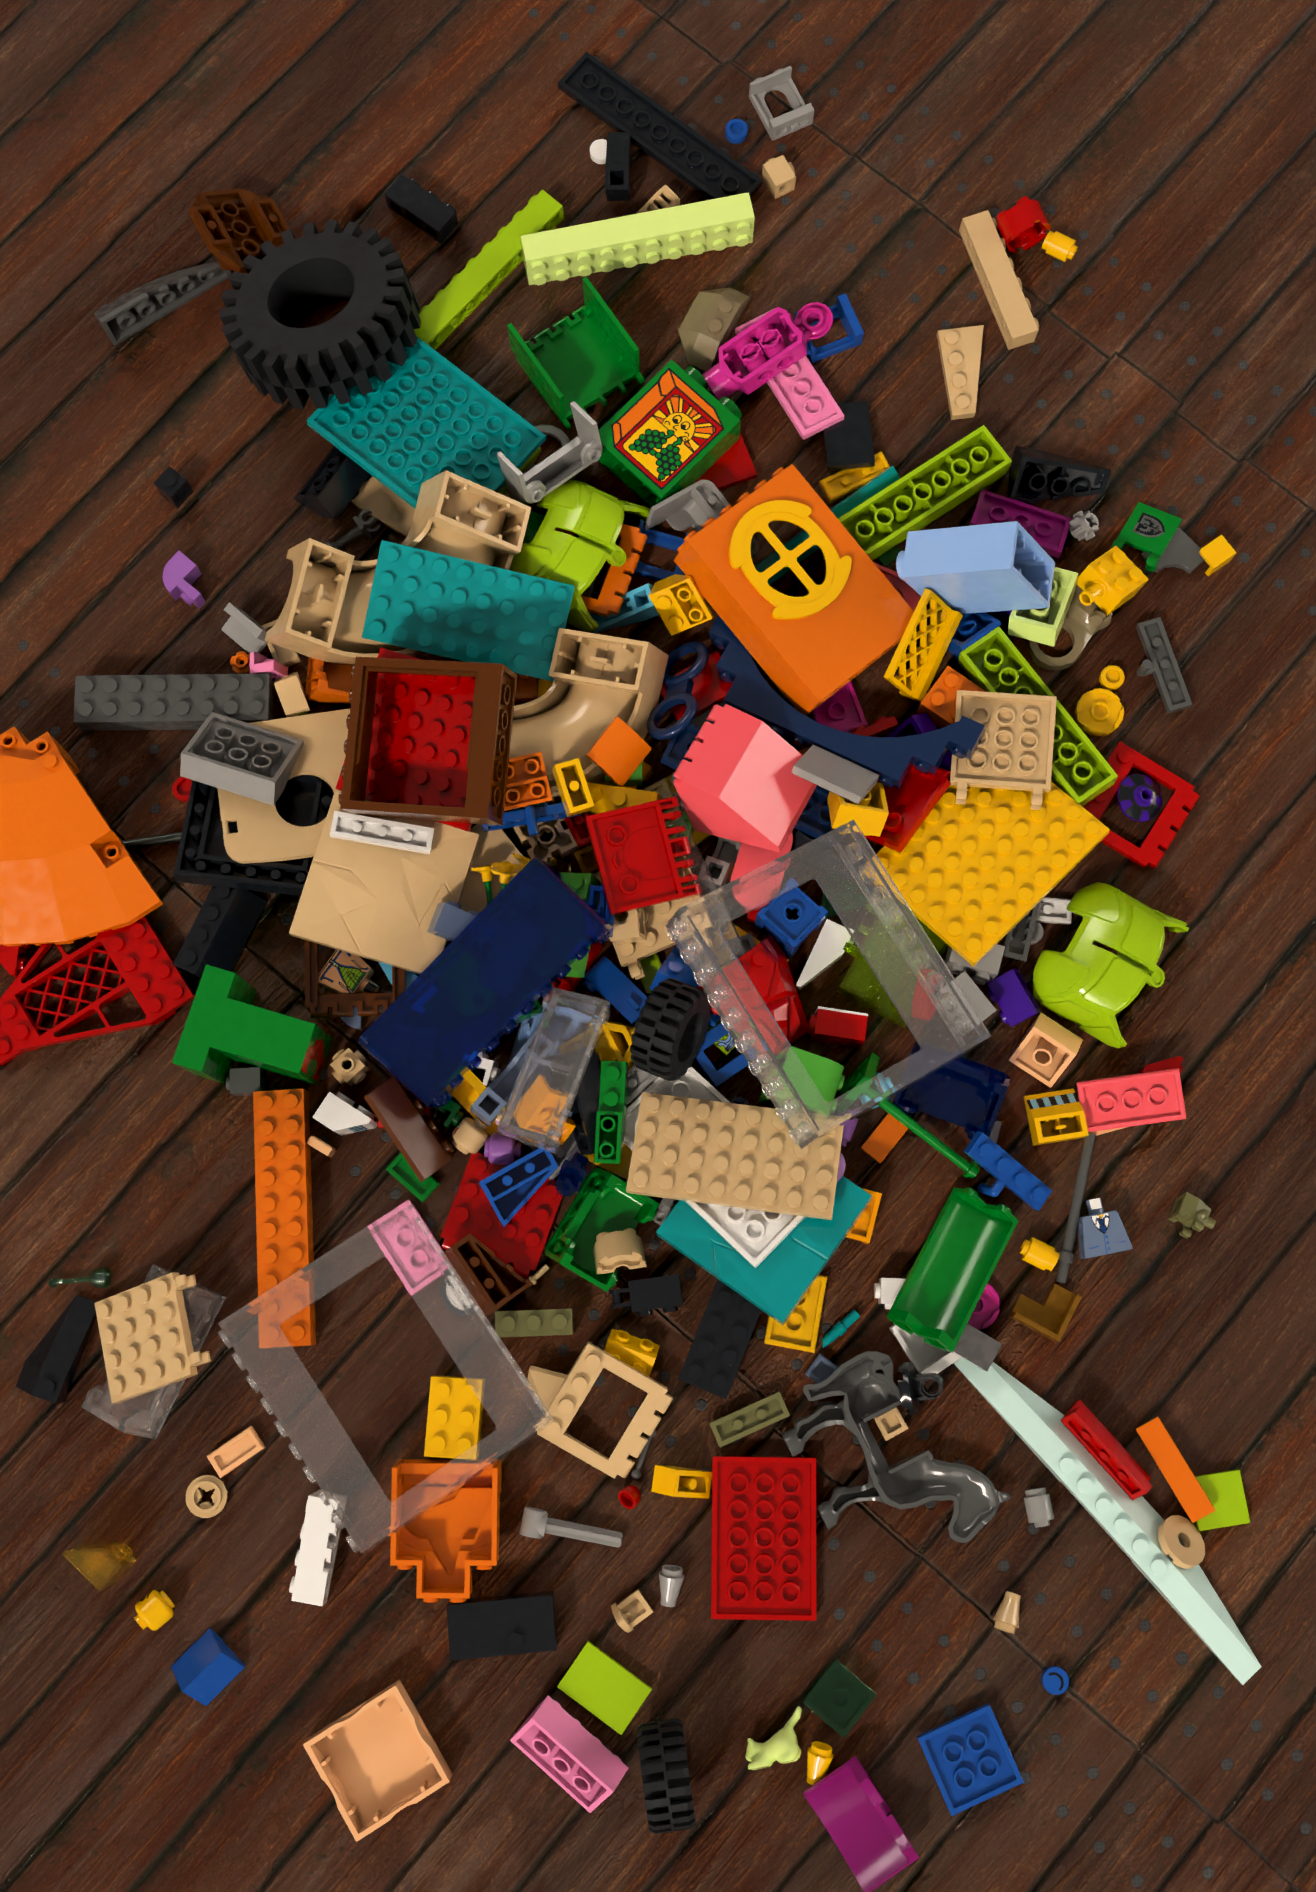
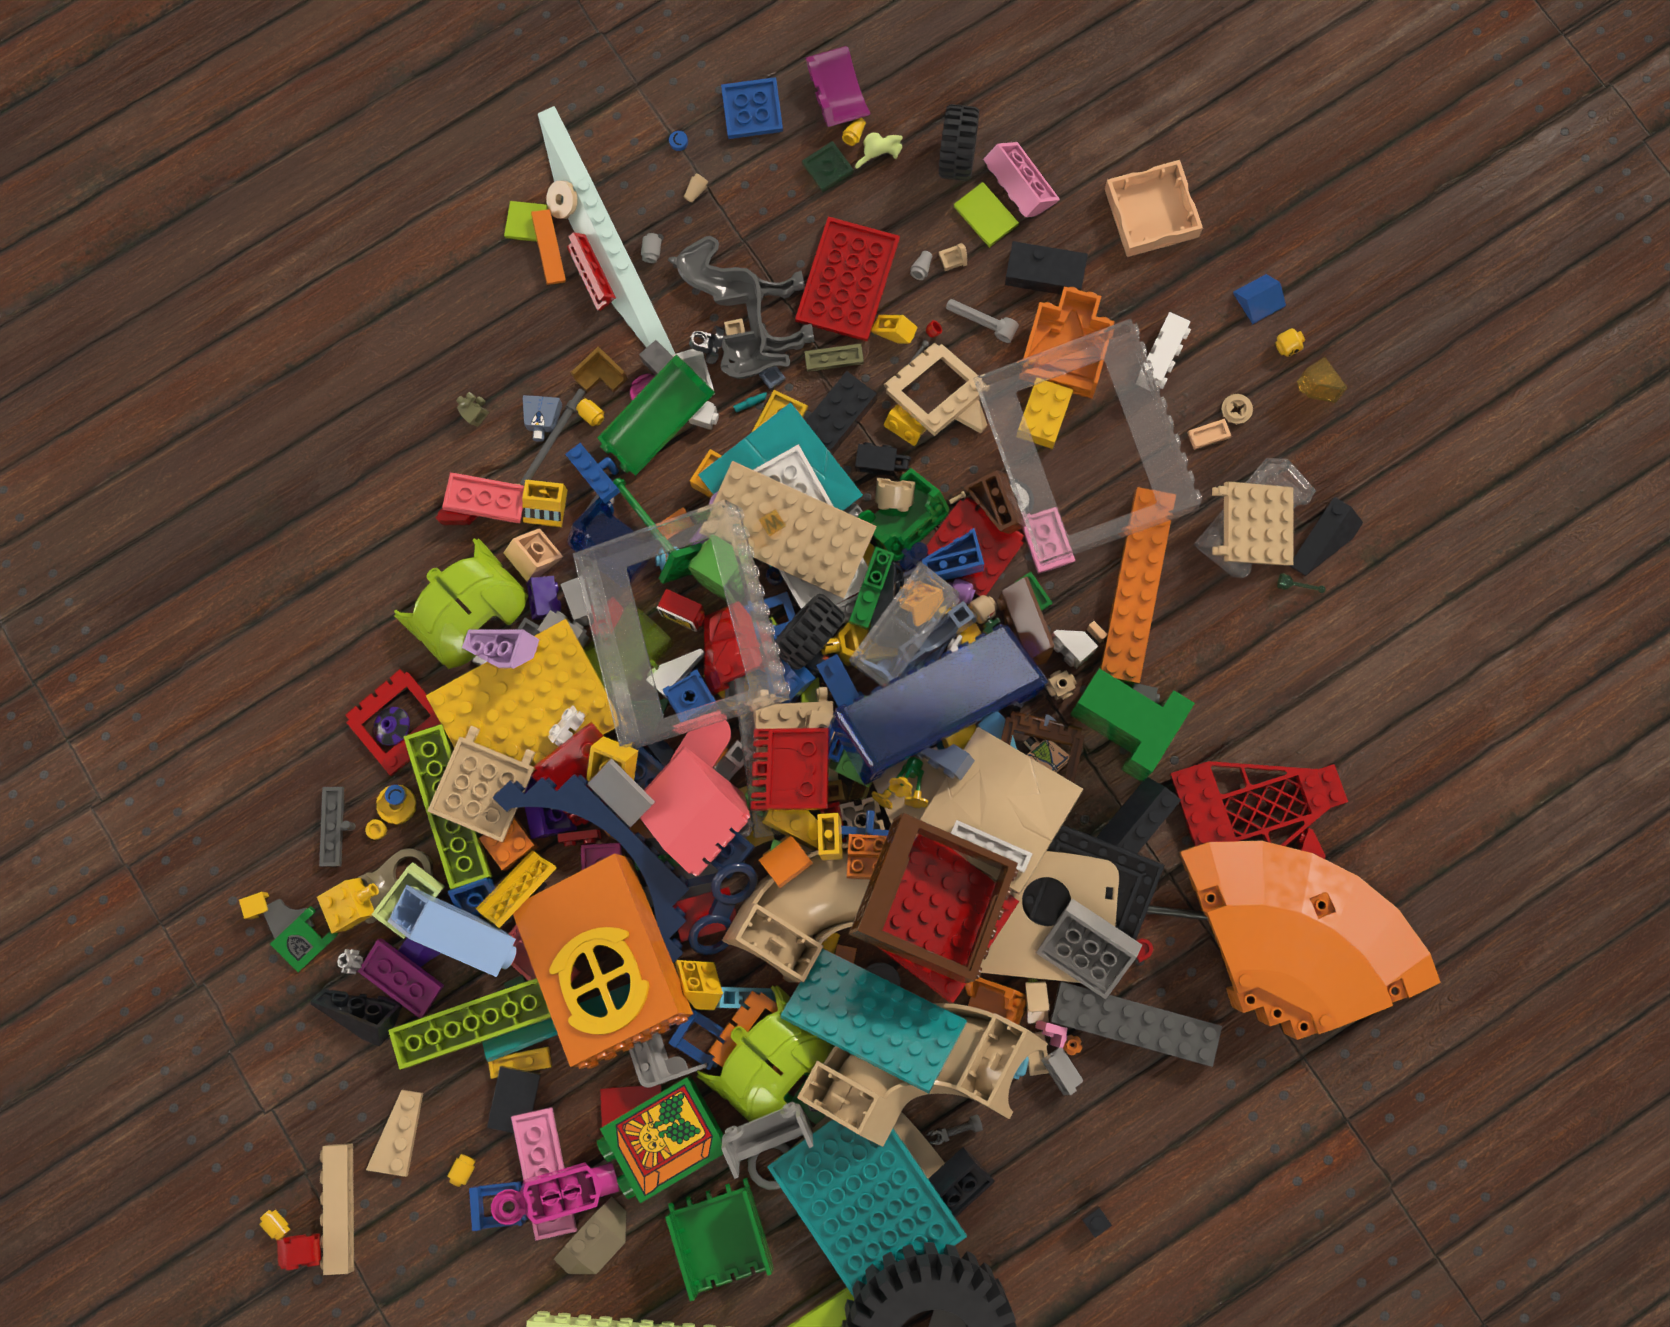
camera: 155 degrees left, 0 degrees up
(179, 576) = (1111, 1134): medium lavender brick -> none
(534, 1323) = (968, 461): olive brick -> none
(756, 1153) = (772, 523): none -> clear yellow tile
(879, 352) = (461, 1170): none -> yellow brick
(927, 849) = (569, 719): none -> white hinge
(1034, 900) = (501, 647): none -> lavender wedge
(1103, 718) = (395, 795): none -> blue tile

